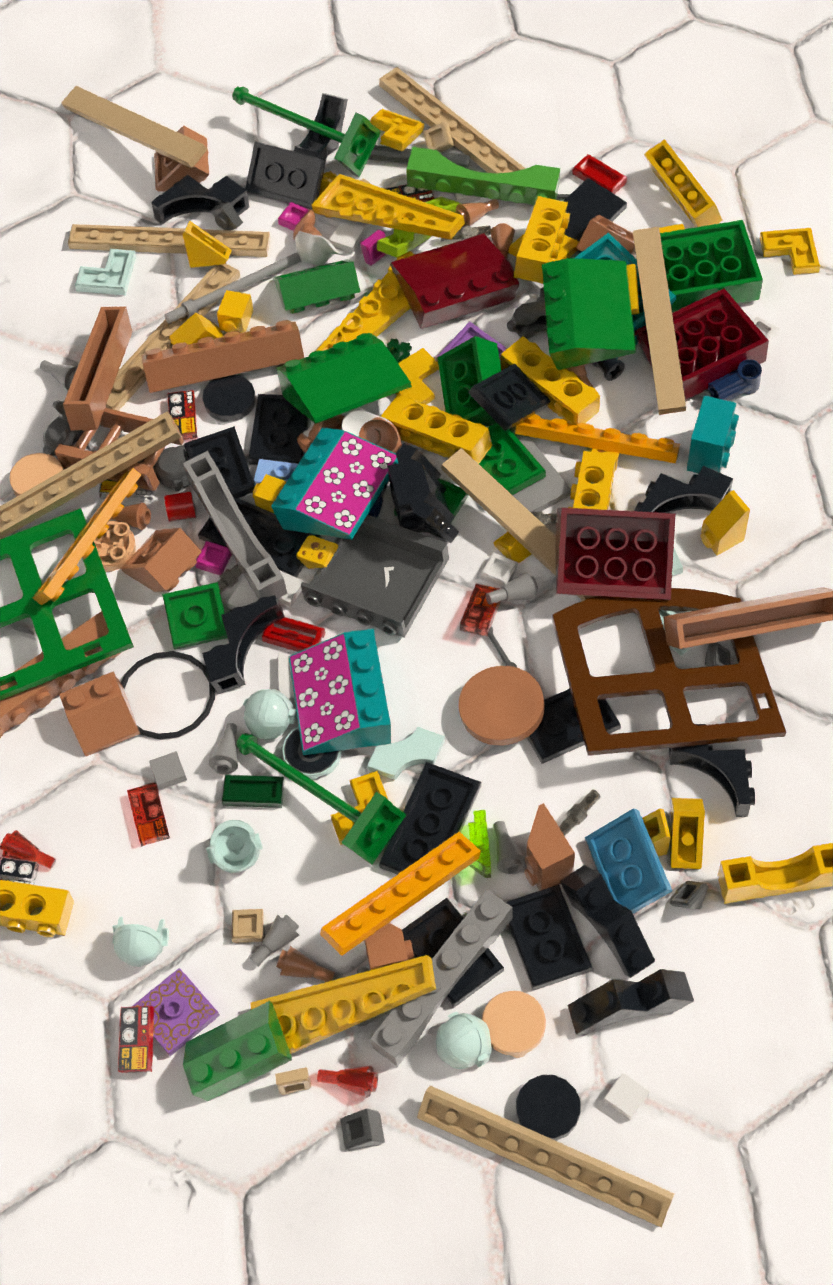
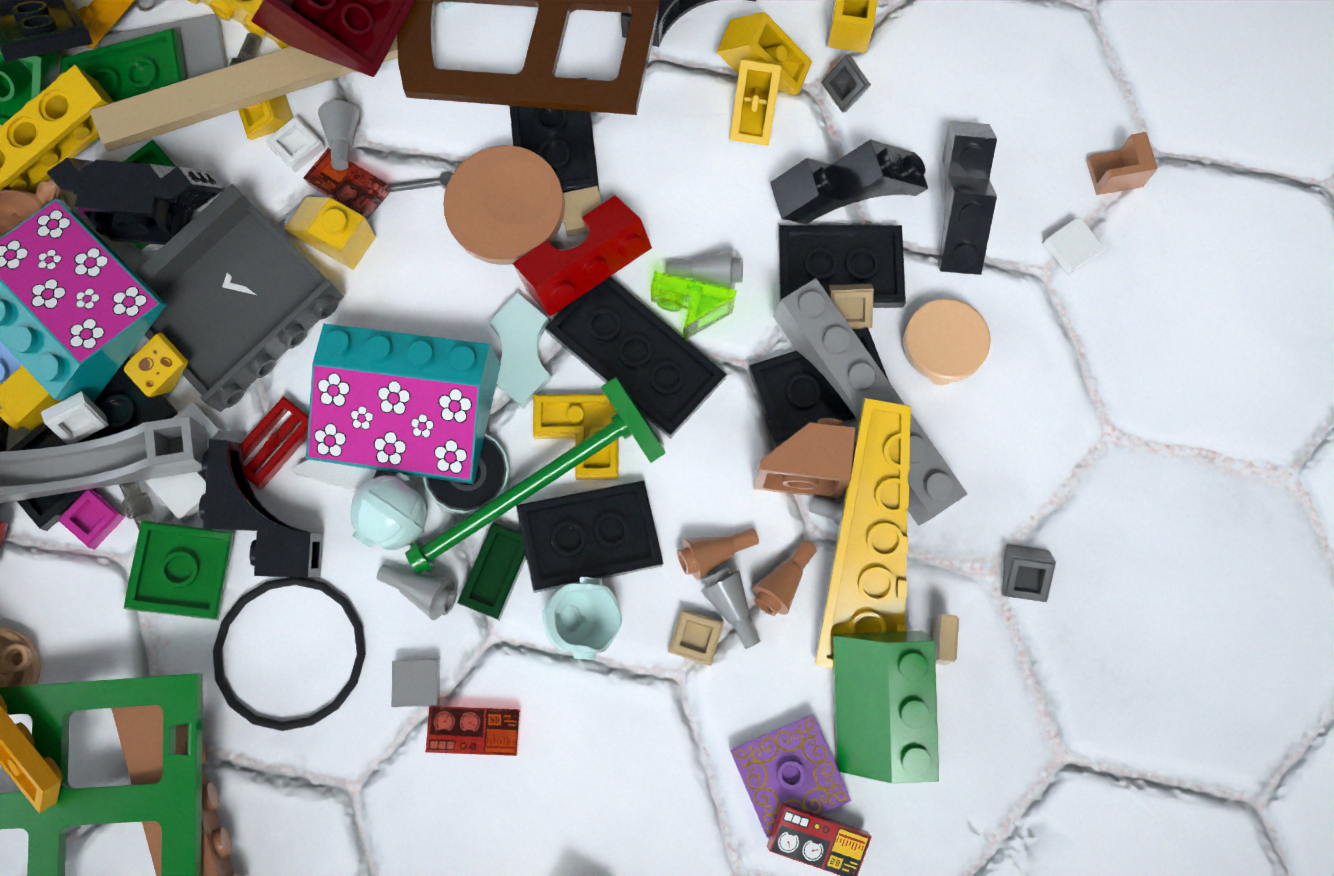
camera: 75 degrees left, 15 degrees up
(99, 713) = (285, 760): nougat slope -> none
(138, 943) = (684, 799): light aqua cap -> none
(162, 559) = (59, 593): nougat slope -> none
(267, 522) = (74, 418): none -> white tile
(293, 836) = (589, 536): none -> black tile
(304, 911) = (705, 554): none -> nougat cone
(357, 1080) = (964, 557): clear red cone -> none
(399, 893) = (761, 410): light orange plate -> none
(444, 613) = (332, 230): none -> yellow slope
(463, 1041) = (955, 406): light aqua cap -> none
(499, 778) = (561, 276): none -> red arch
(513, 949) = (854, 303): none -> tan tile
(520, 757) = (576, 206): none -> tan tile
(546, 1156) = (1124, 364): tan plate -> none
(548, 852) = (739, 215): nougat slope -> none
(548, 1106) = (1063, 338): black tile -> none
(578, 812) = (690, 172): clear smoke bar -> none
(628, 861) = (780, 128): dark azure tile -> none
(704, 1113) = (1123, 168): none -> nougat panel

